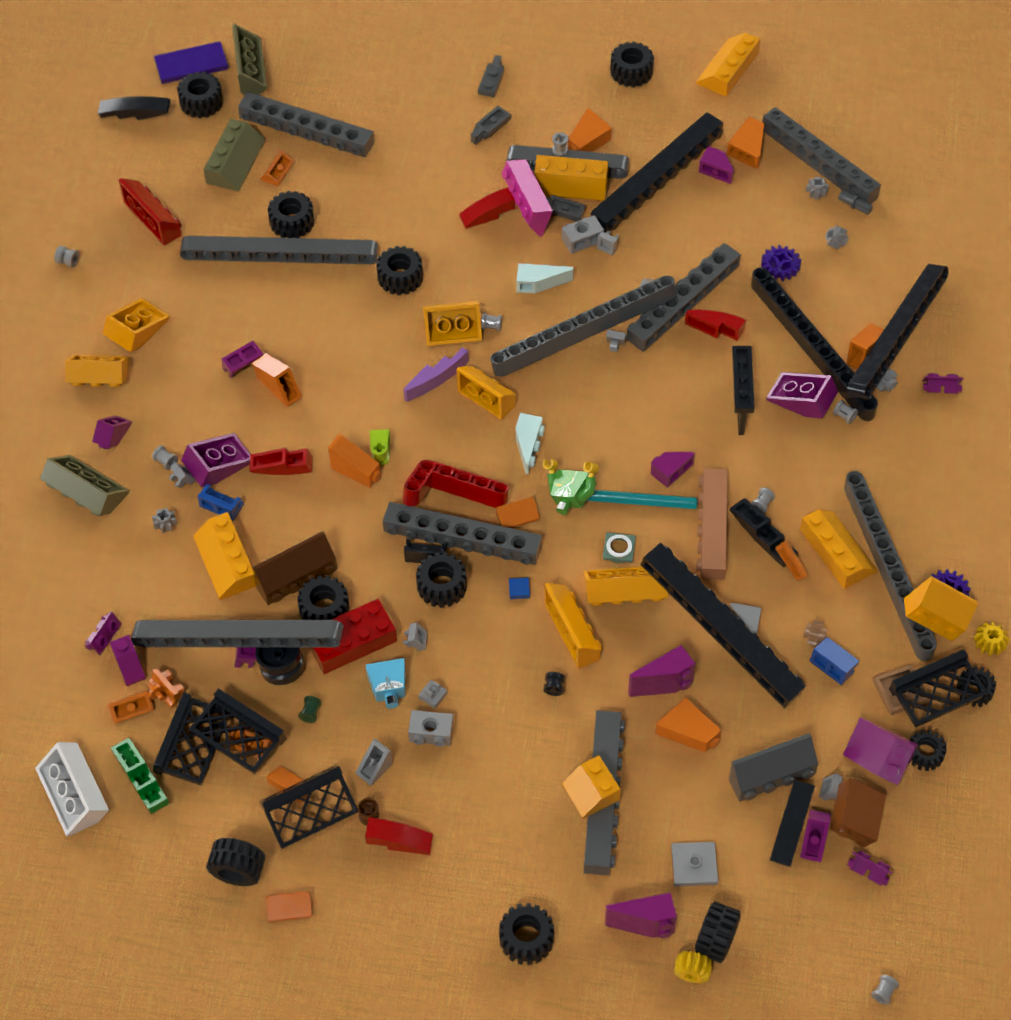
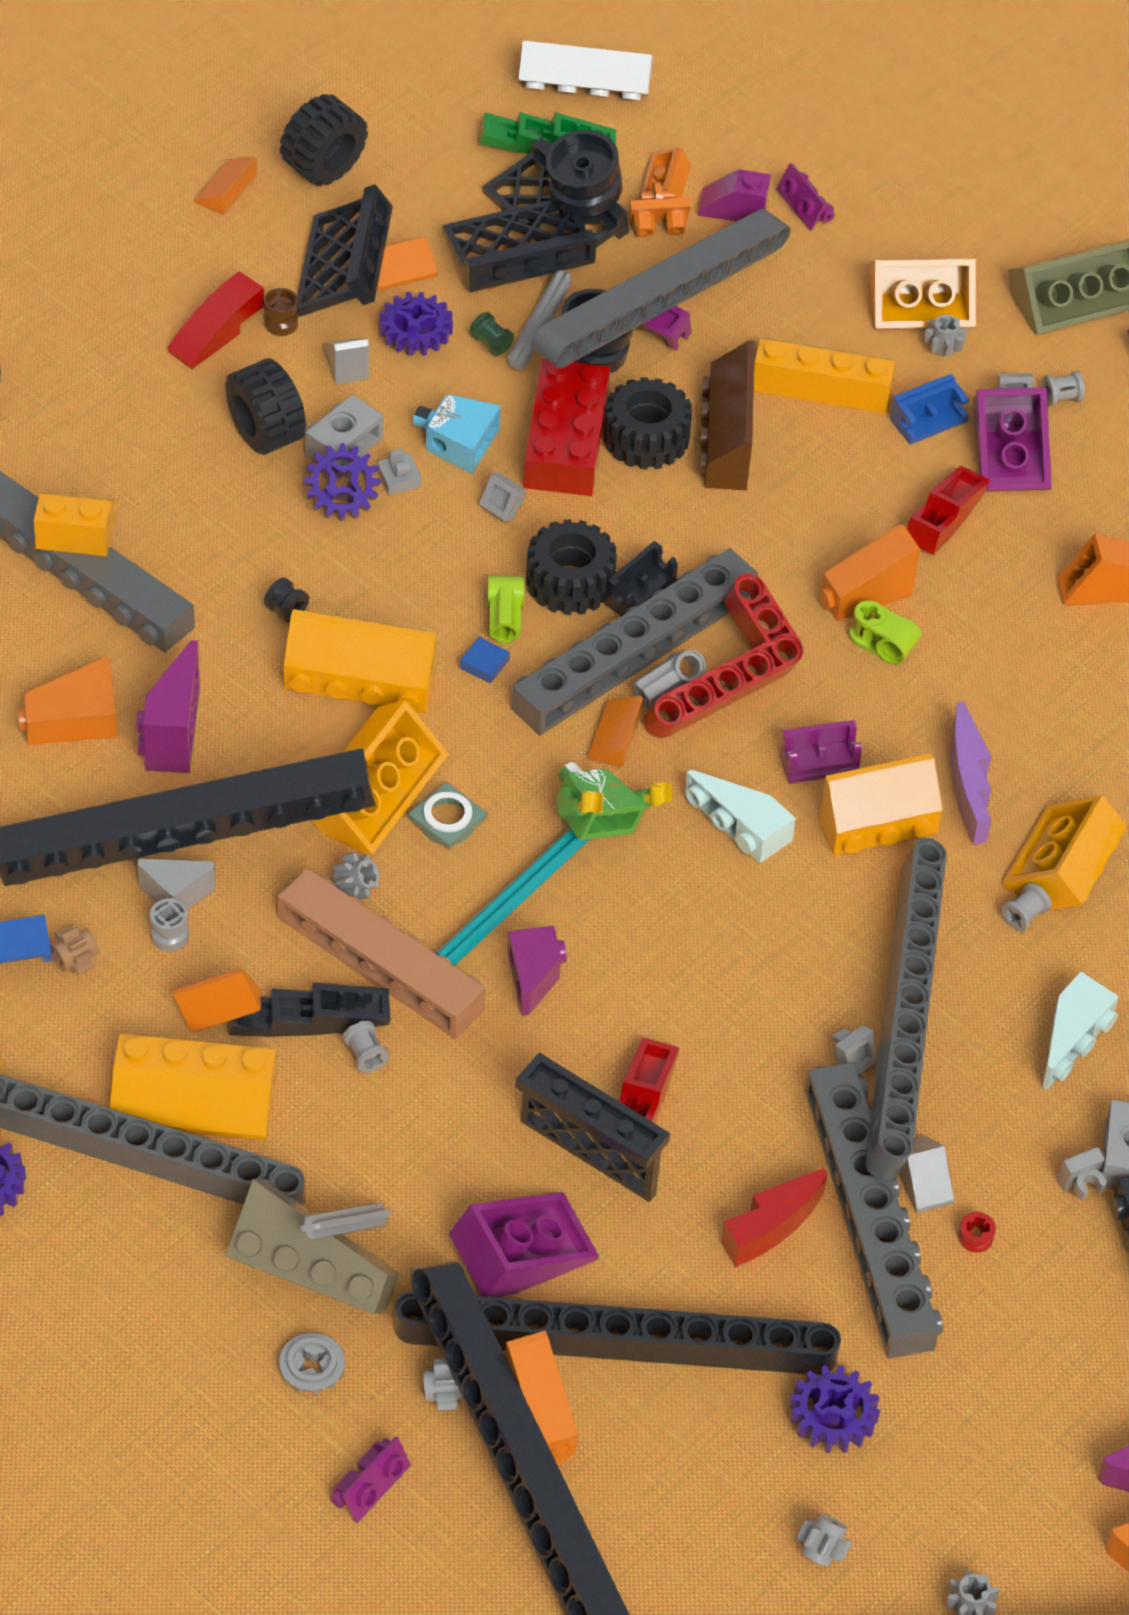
camera: 120 degrees right, 5 degrees down
(138, 545) = (921, 290): none -> light orange slope
(180, 713) = (584, 173): none -> black wheel
(282, 697) = (541, 315): none -> light grey axle
(322, 752) = (416, 323): none -> dark purple gear
(450, 759) = (265, 406): none -> black tyre
(465, 704) = (331, 471): none -> dark purple gear
(467, 433) = (820, 751): none -> magenta hinge
(468, 505) = (668, 676): none -> light grey piece
(479, 598) = (505, 605): none -> lime piece
(664, 260) = (974, 1243): none -> red bush
(685, 553) = (356, 875): none -> light grey gear
(697, 396) = (649, 1078): none -> red slope
(770, 608) = (169, 924): none -> light grey wheel
(860, 438) = (345, 1221): none -> light grey axle
(878, 451) = (333, 1265): none -> dark tan wedge
(909, 425) = (315, 1348): none -> light grey gear

